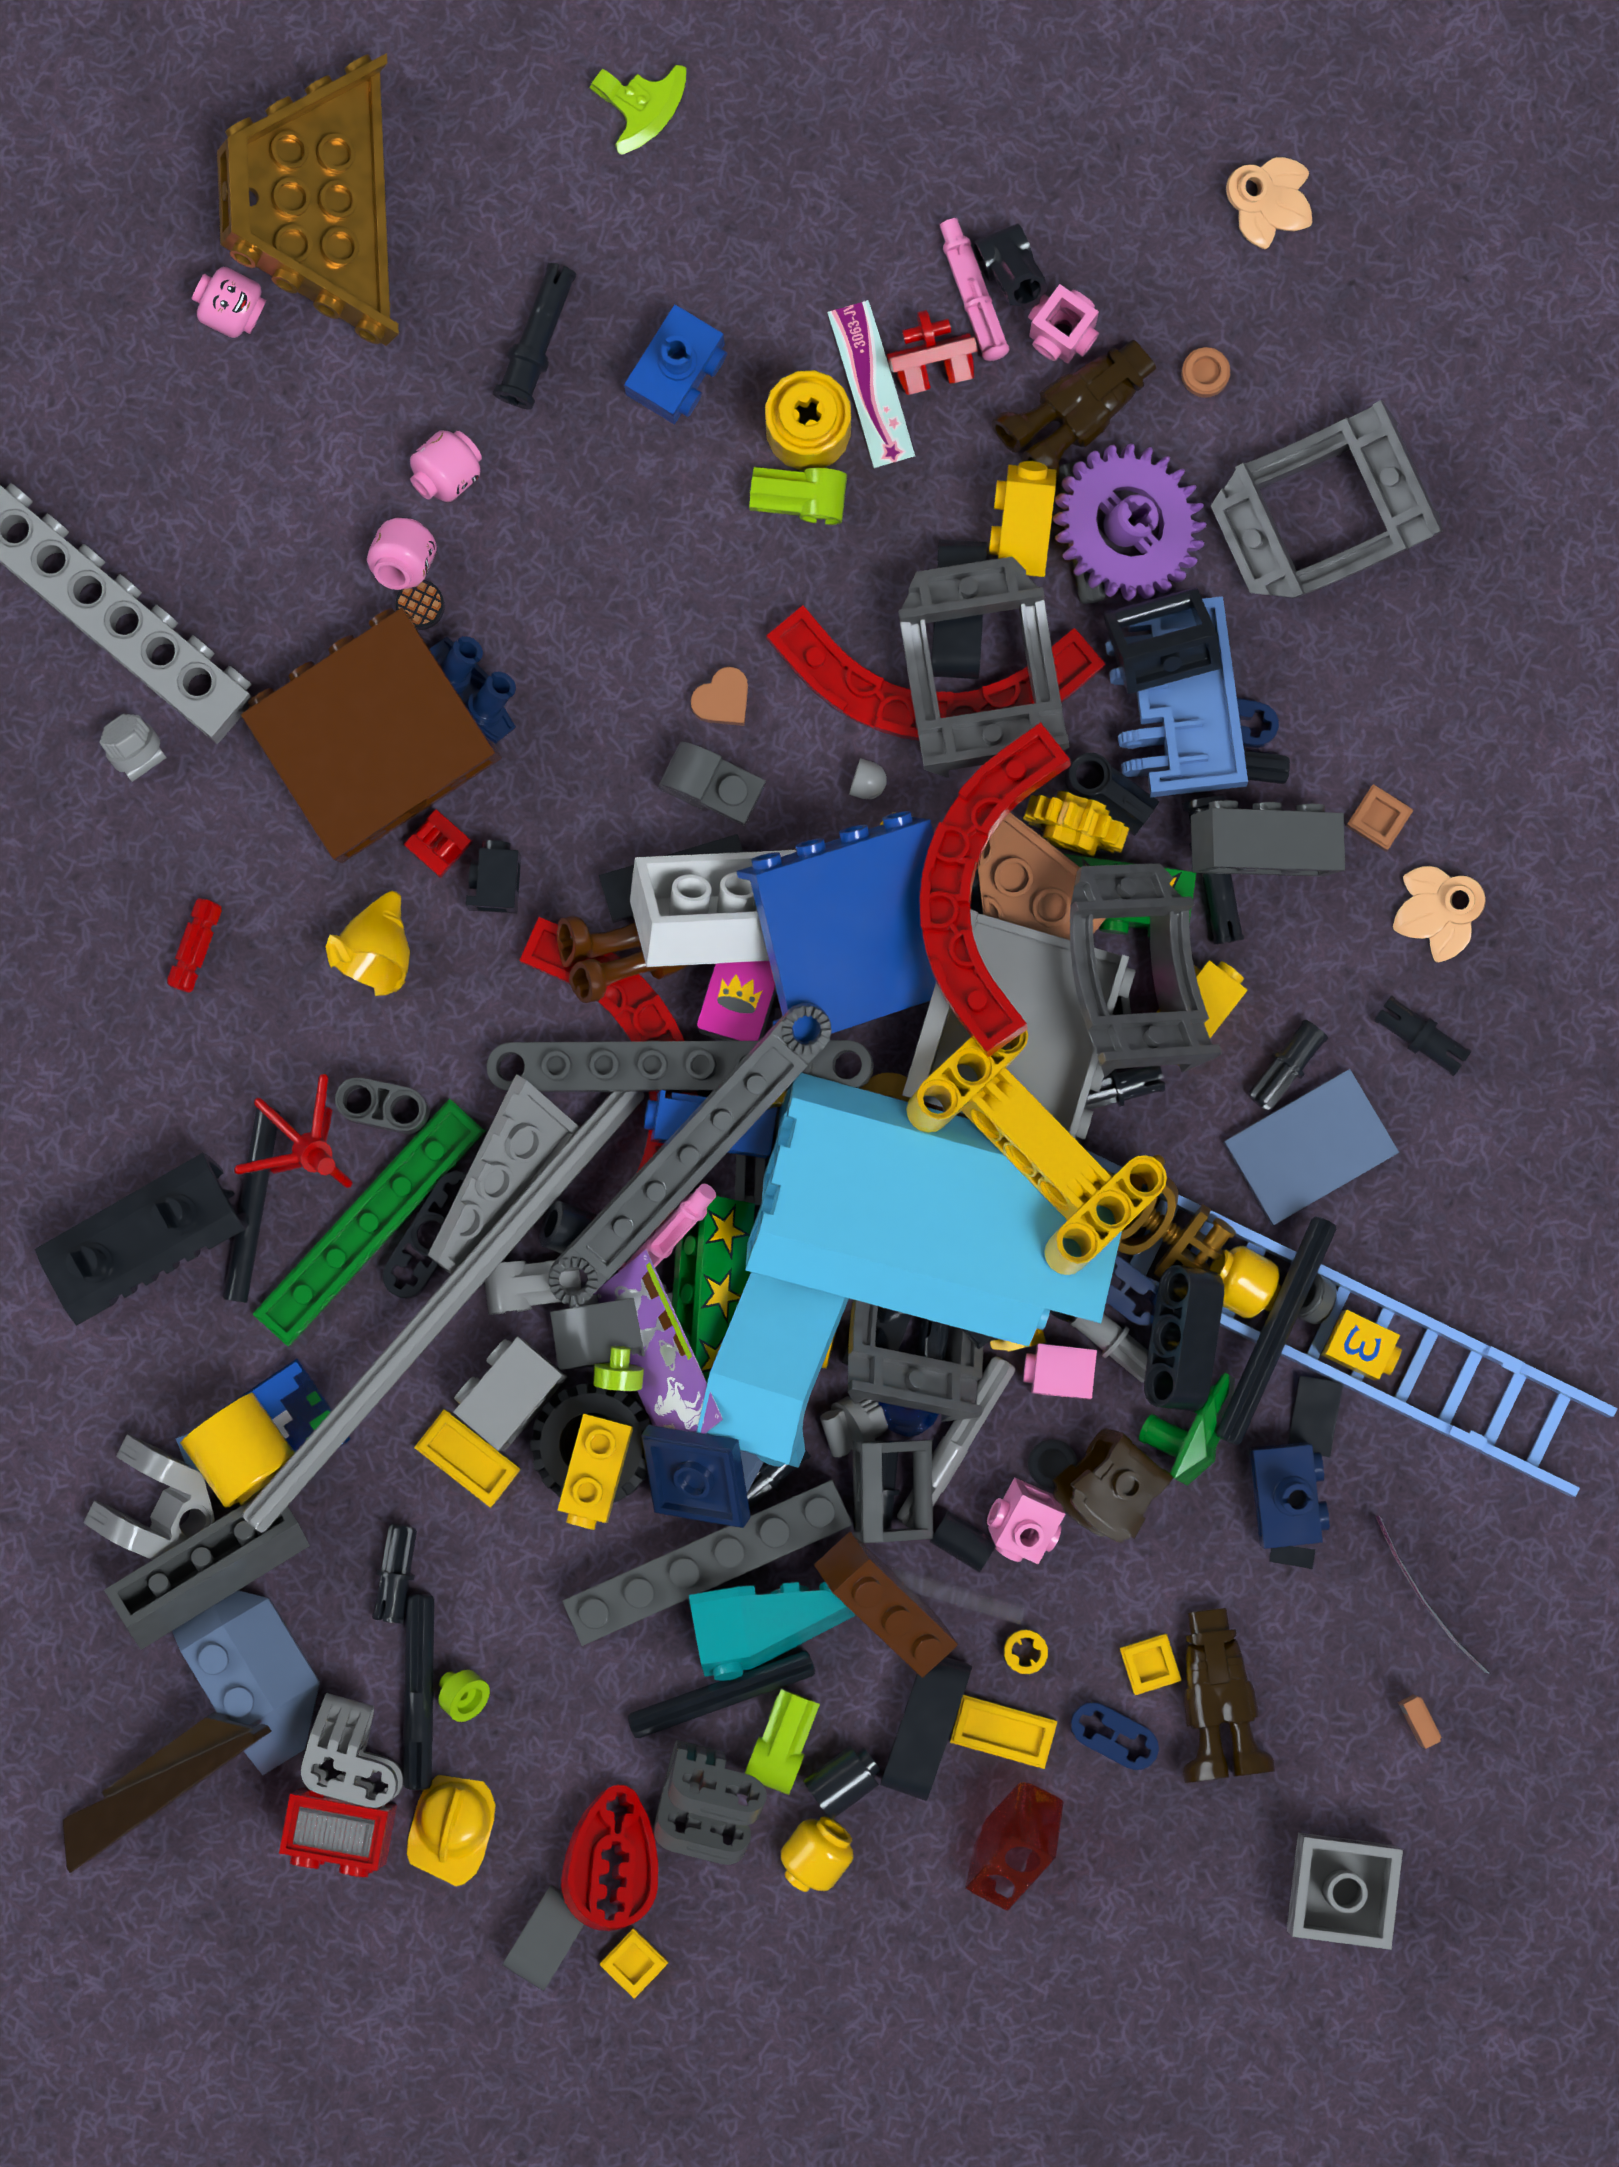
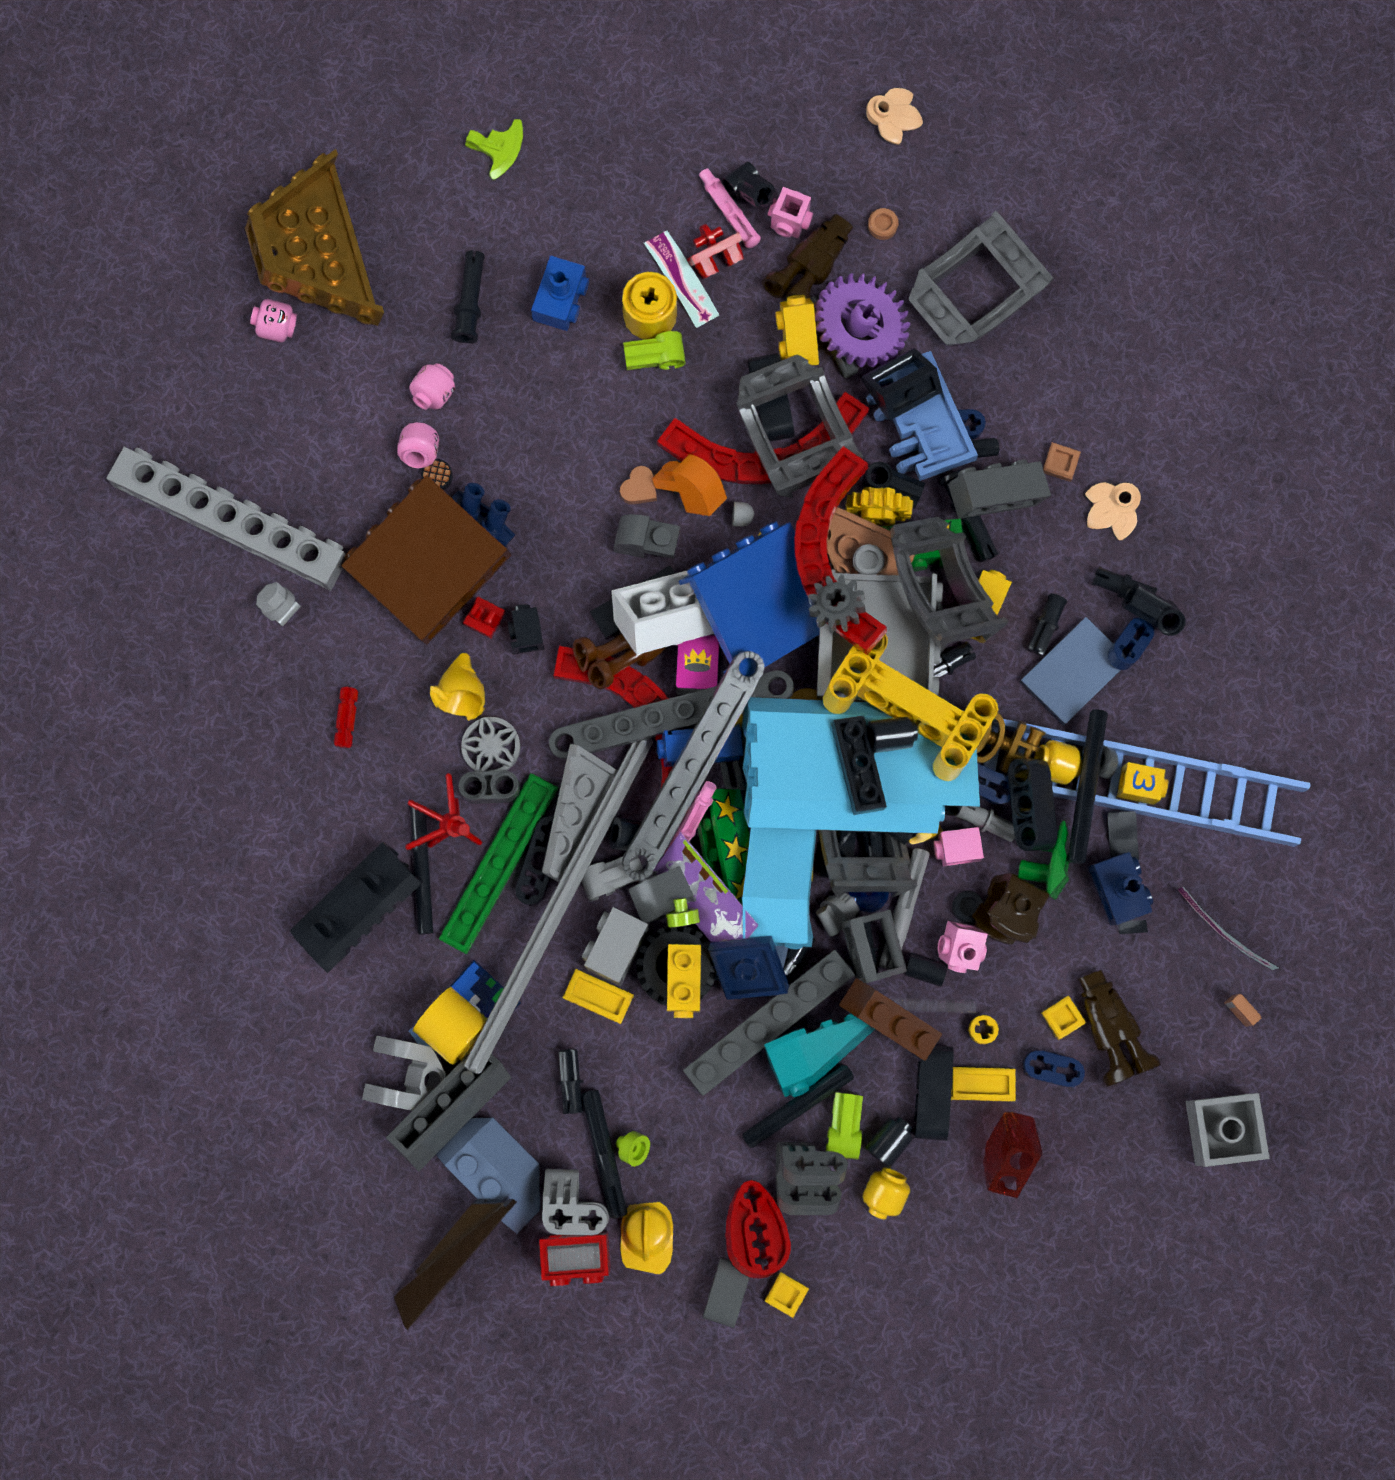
camera: 20 degrees left, 5 degrees down
(400, 1042) = (490, 744): none -> light grey wheel
(807, 718) = (696, 483): none -> orange brick
(933, 1248) = (861, 782): none -> black tile
(966, 986) = (845, 611): none -> dark grey gear
(994, 1184) = (892, 734): none -> black brick
(1035, 905) = (868, 559): none -> light grey tile
(1400, 1120) = (1135, 647): none -> dark blue beam
(1453, 1084) = (1153, 609): none -> black piece

